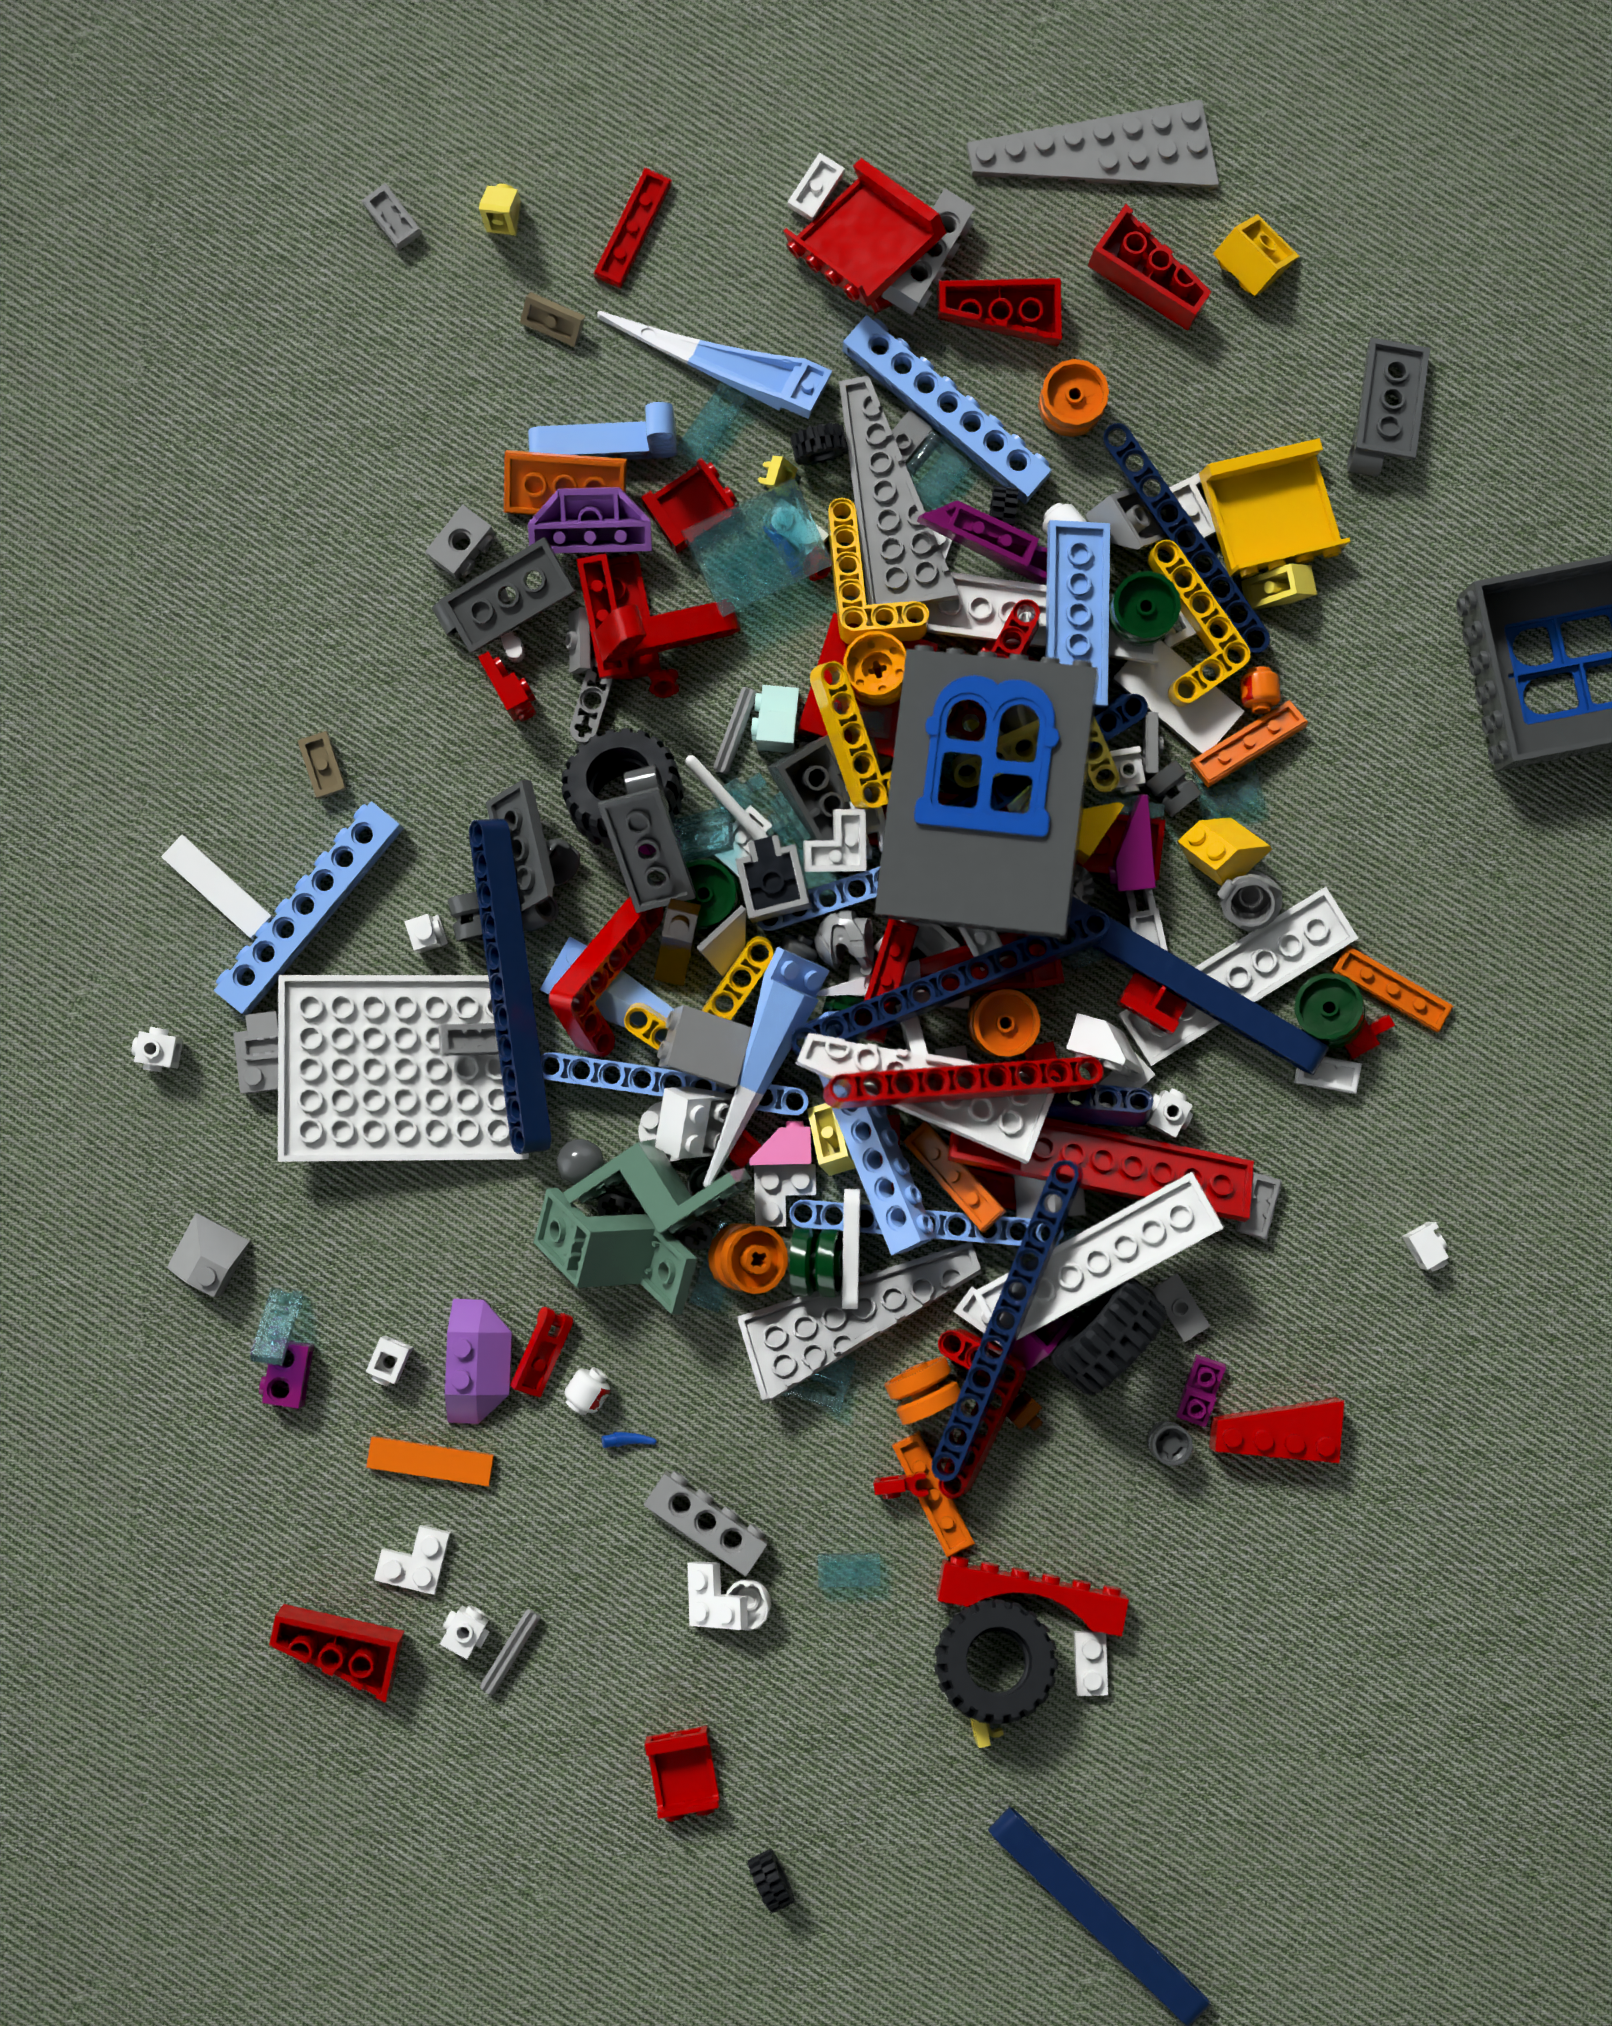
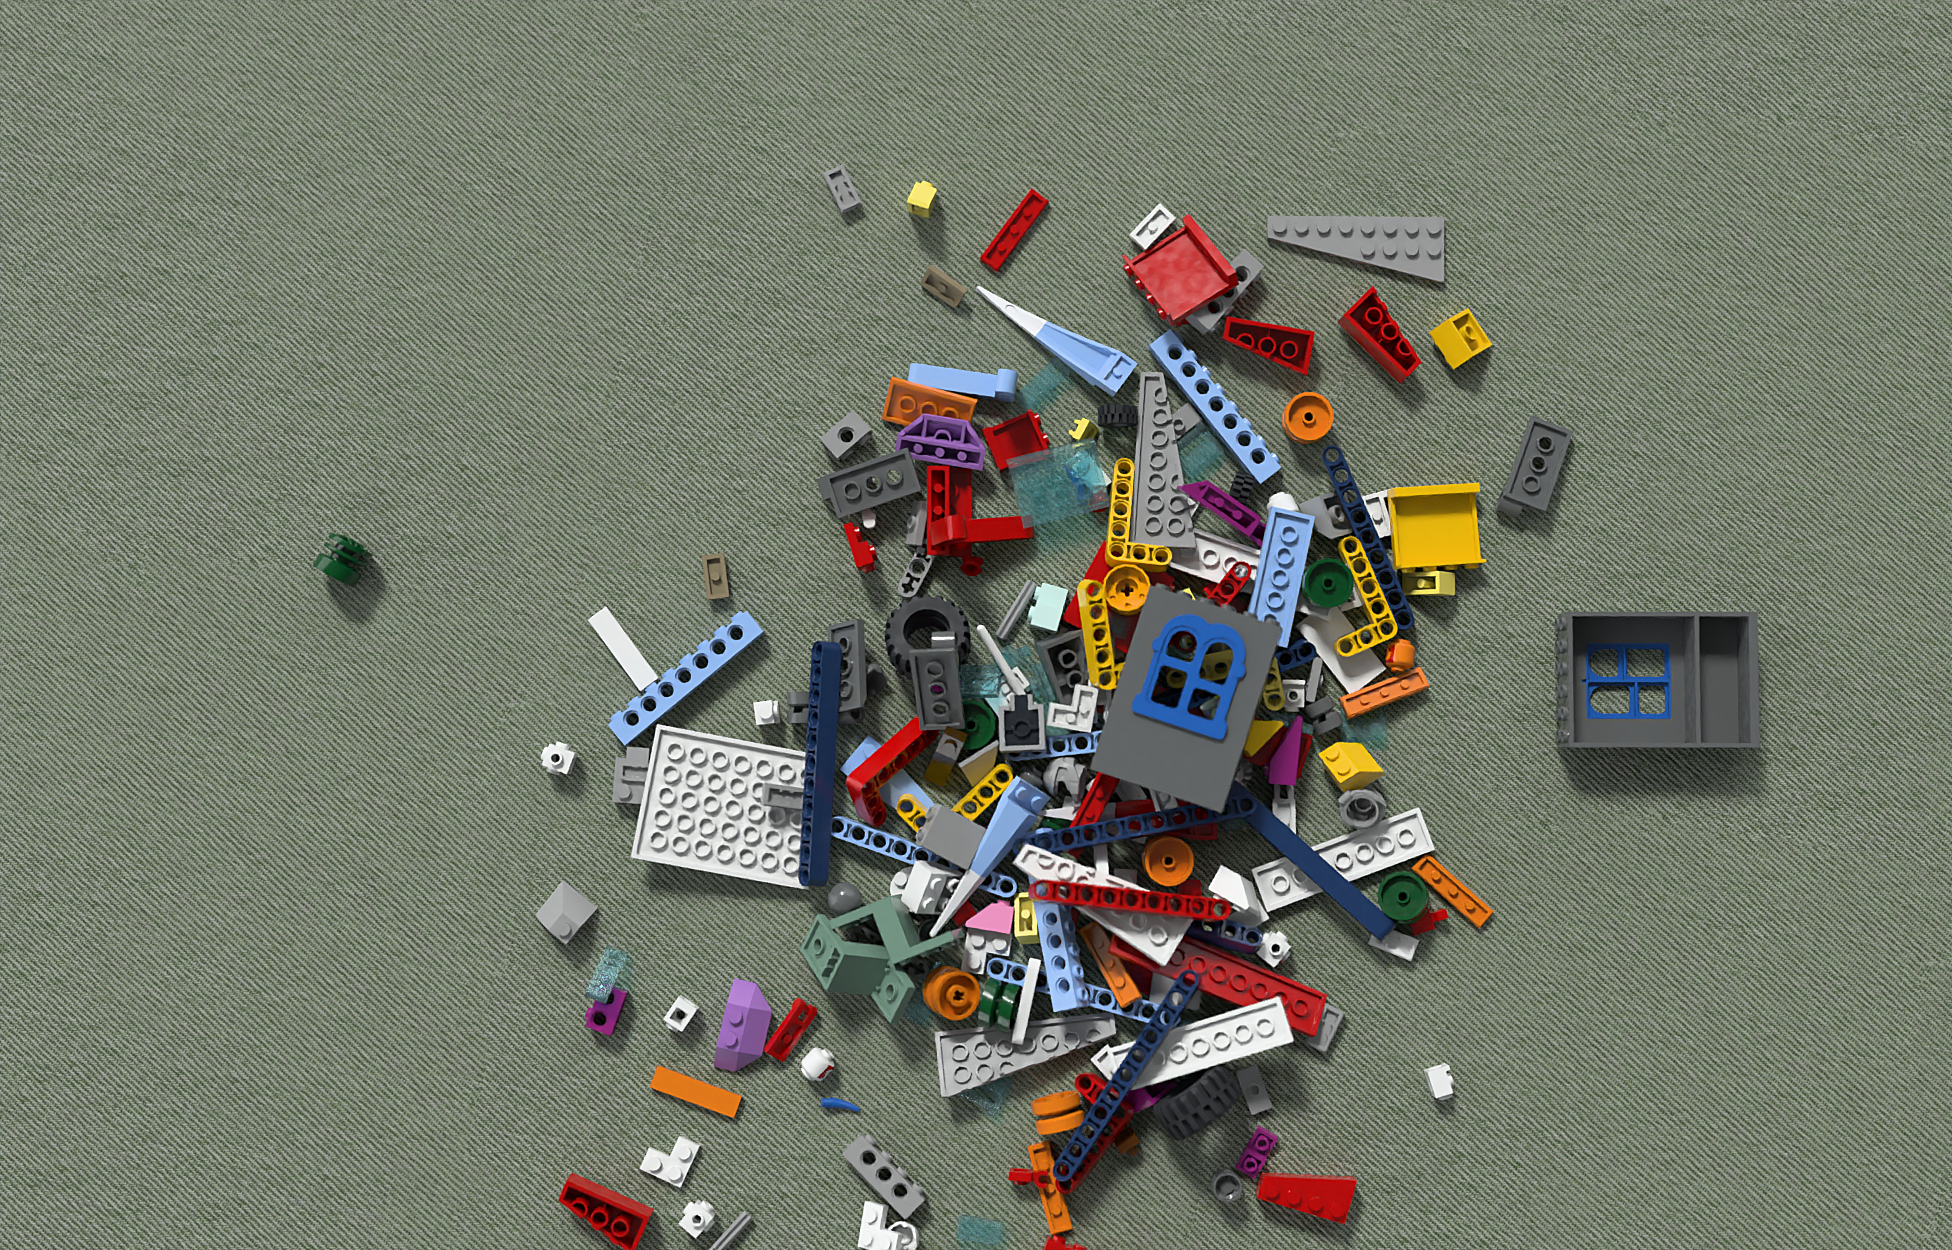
camera: 15 degrees right, 0 degrees up
(1152, 1003) = (1277, 867): red panel -> none

